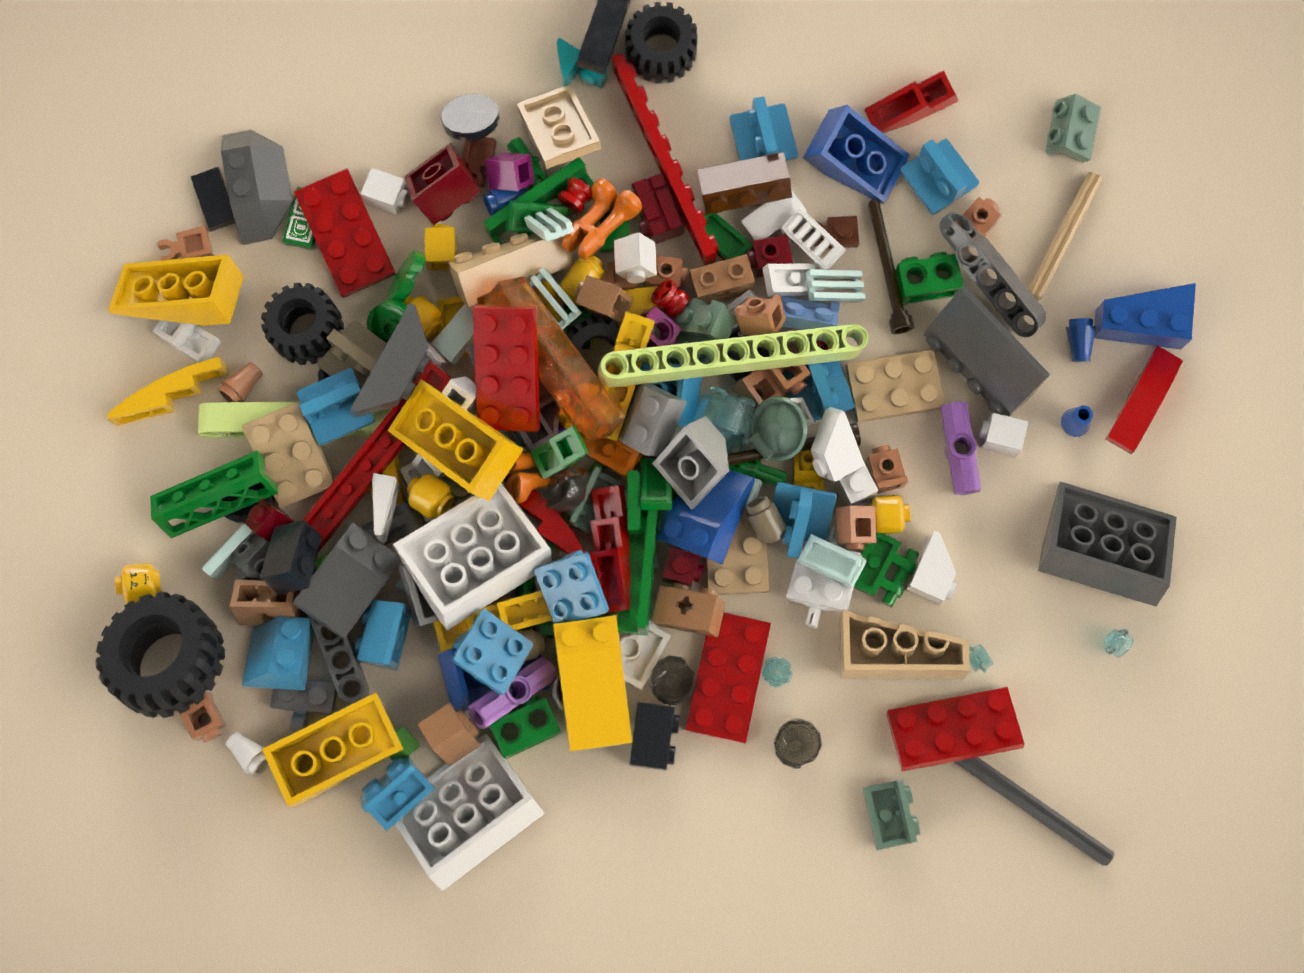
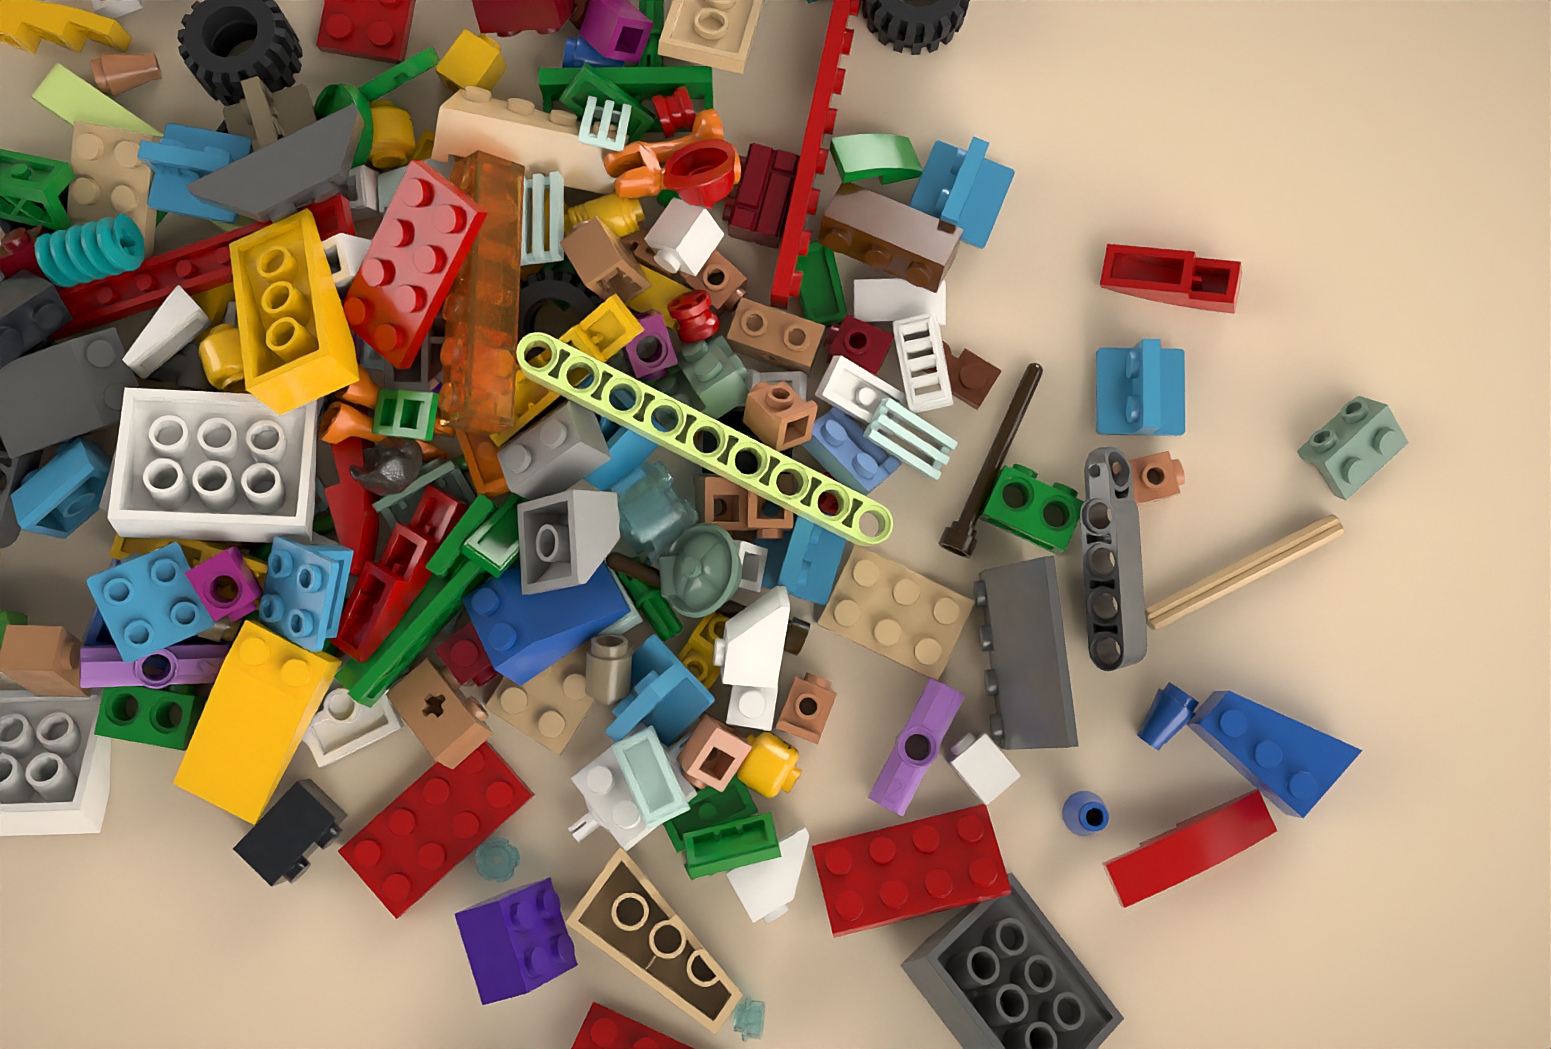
camera: 35 degrees right, 5 degrees up
(307, 492) = (90, 251): none -> teal piece
(514, 609) = (205, 580): none -> magenta brick
(623, 213) = (701, 172): none -> red piece
(672, 680) = (360, 783): clear smoke hair -> none
(703, 146) = (875, 155): none -> slope
(797, 743) = (444, 967): clear smoke hair -> none
(824, 699) = (516, 941): none -> dark purple brick
(856, 154) = (1057, 293): blue slope -> none
(902, 567) = (731, 845): none -> green plate
(1006, 516) = (910, 870): none -> red plate

